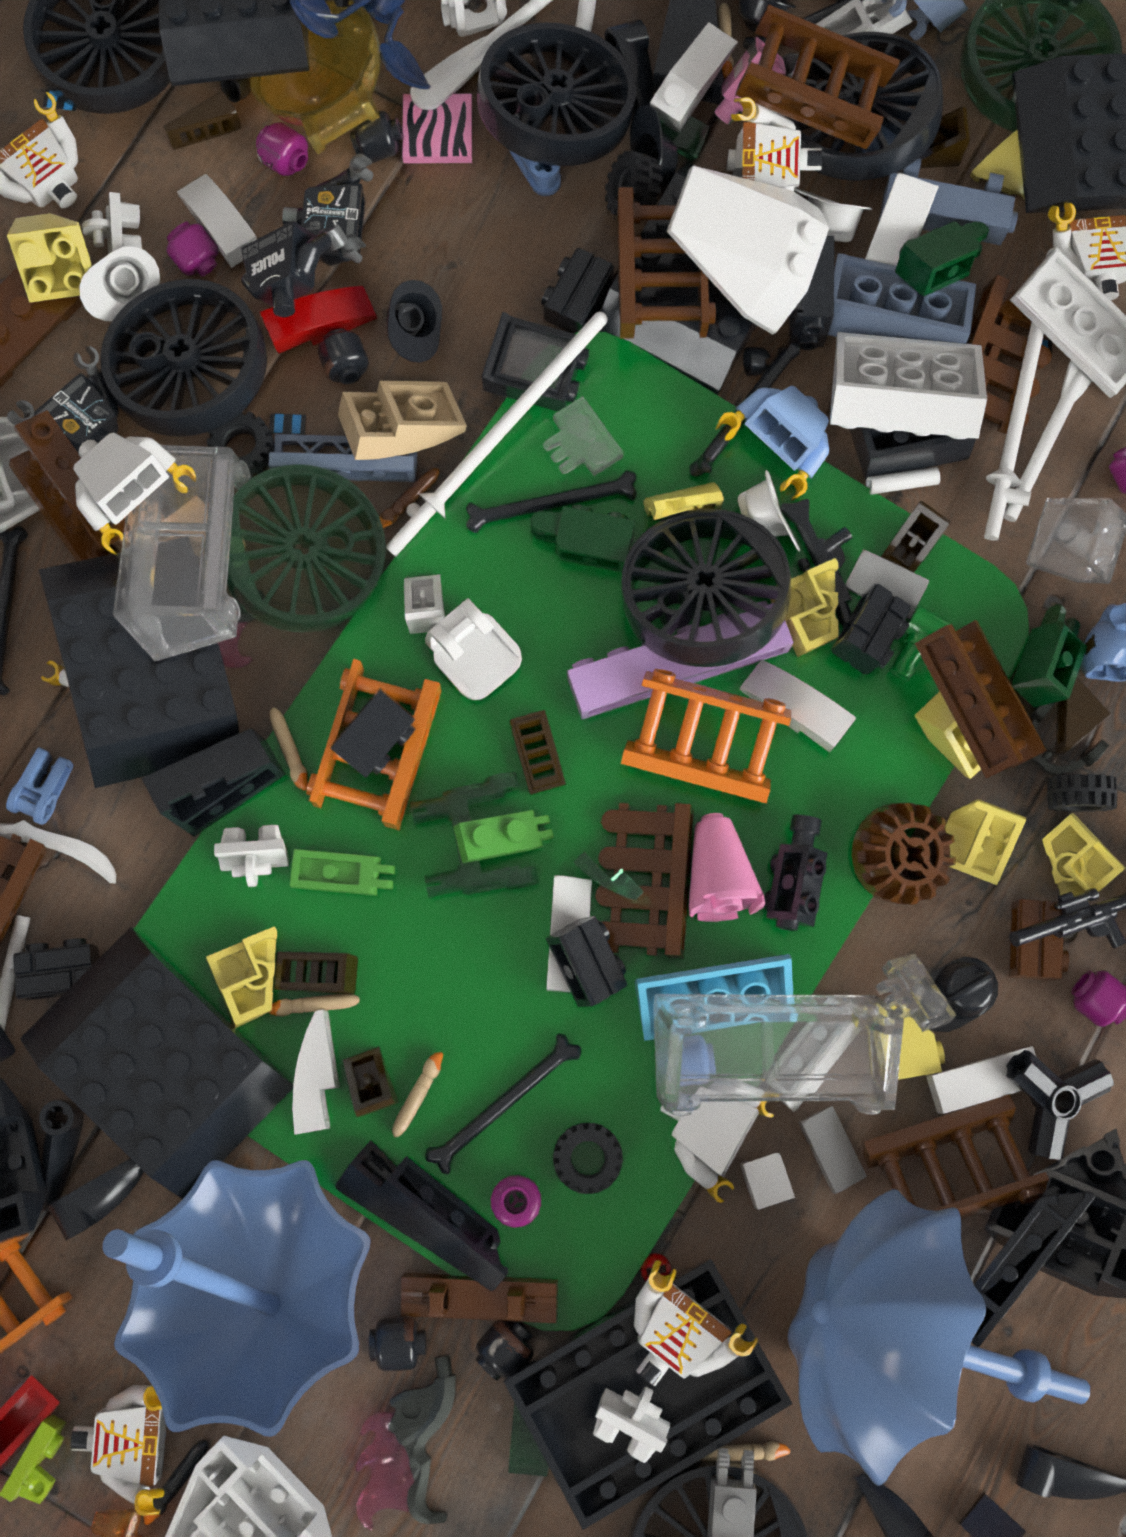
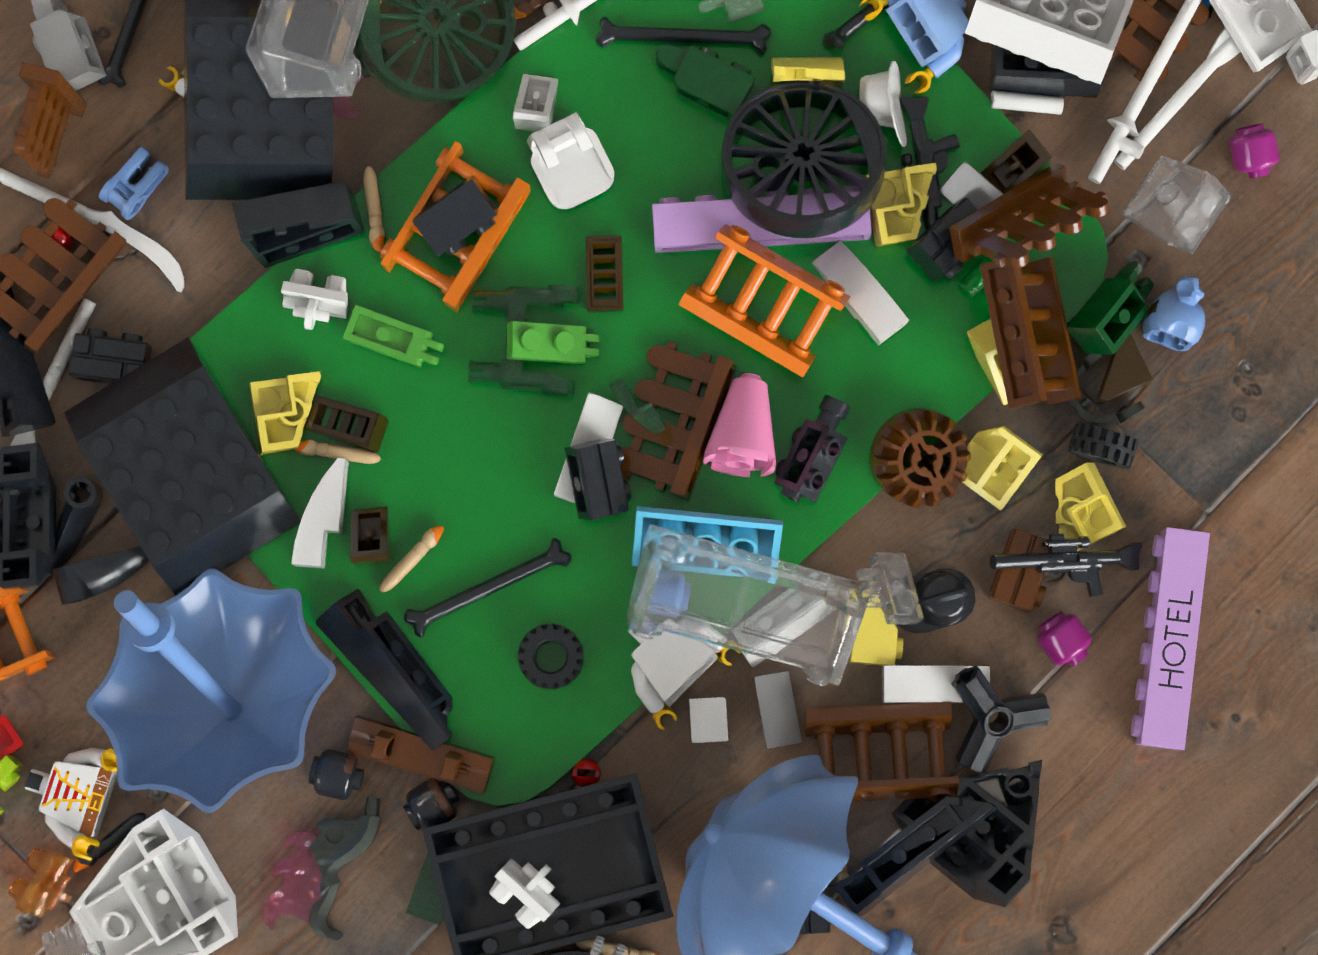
camera: 15 degrees right, 5 degrees up
(506, 1212) = (473, 662): magenta head -> none
(681, 1332) = (590, 825): torso -> none
(930, 585) = (1013, 215): none -> reddish brown fence

